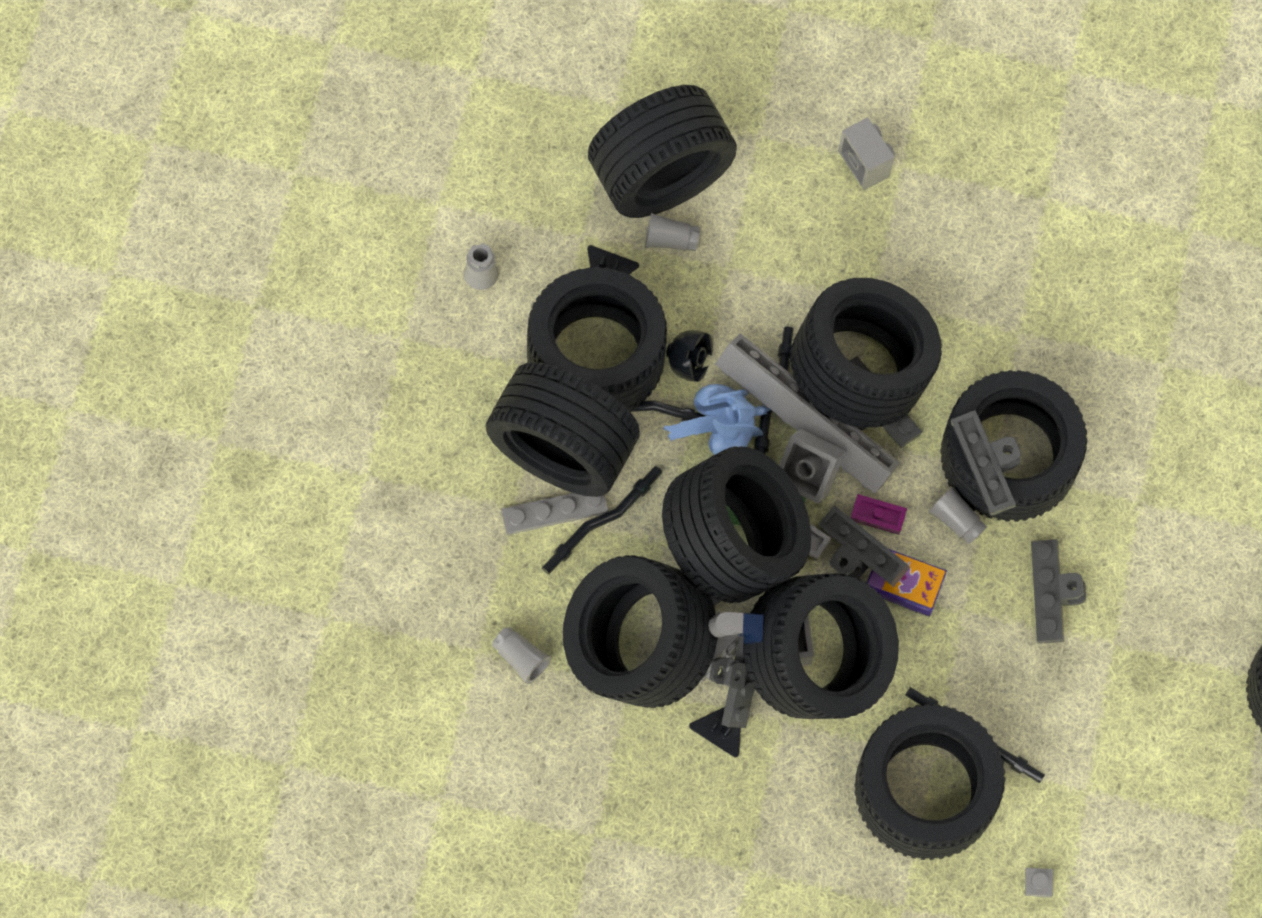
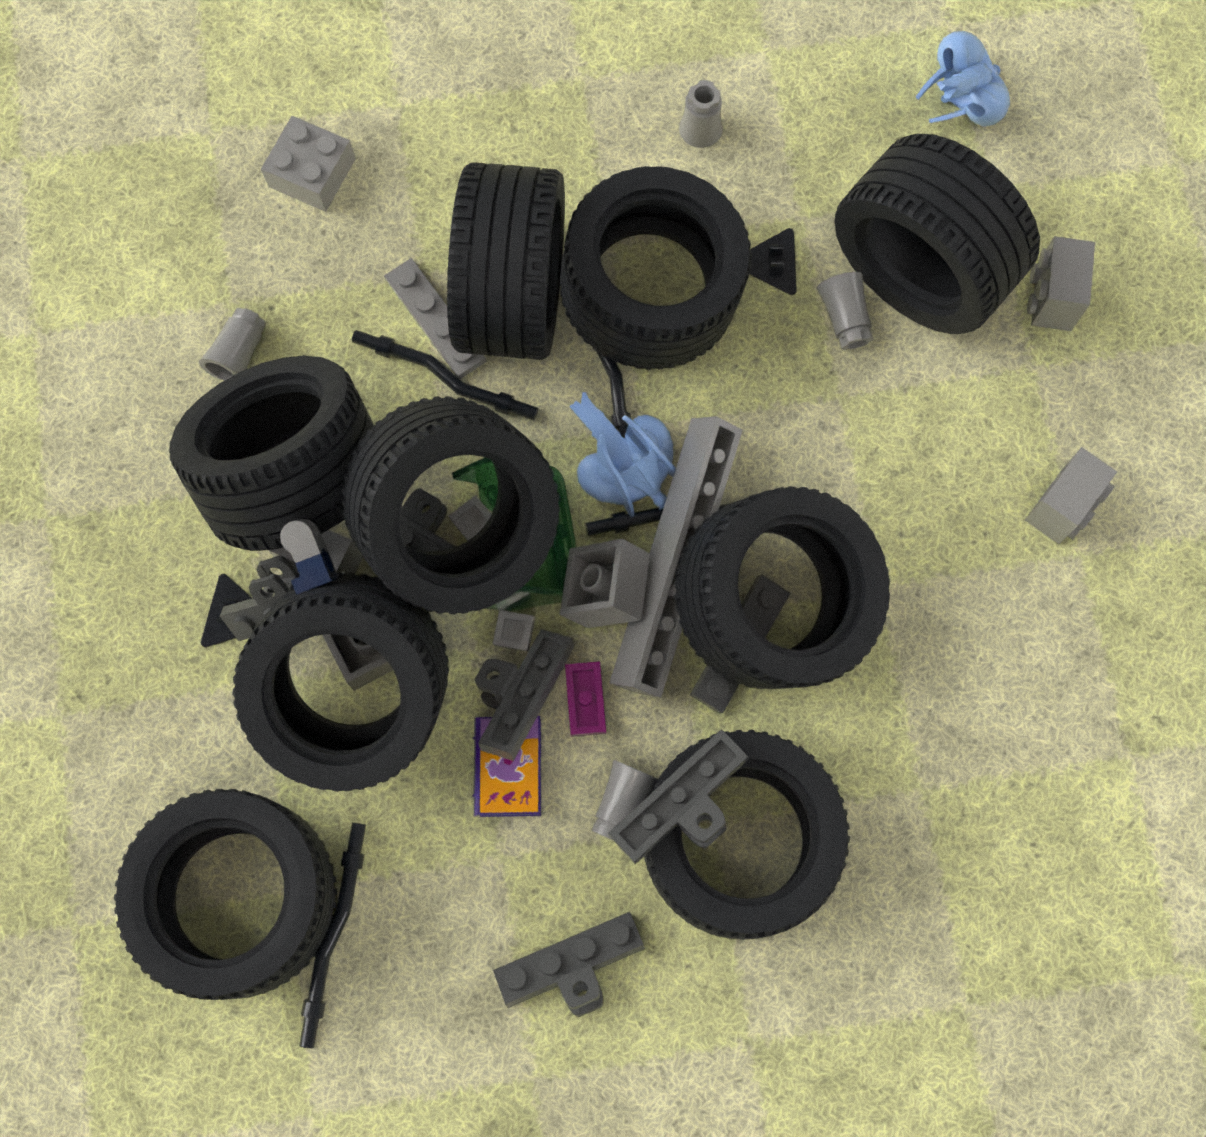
camera: 75 degrees right, 5 degrees up
(395, 551) = (308, 163): none -> light grey brick
(537, 80) = (969, 80): none -> light blue hair
(690, 351) = (697, 388): black cylinder -> none
(722, 86) = (1061, 283): none -> light grey brick
(1038, 882) = (161, 1094): light grey plate -> none

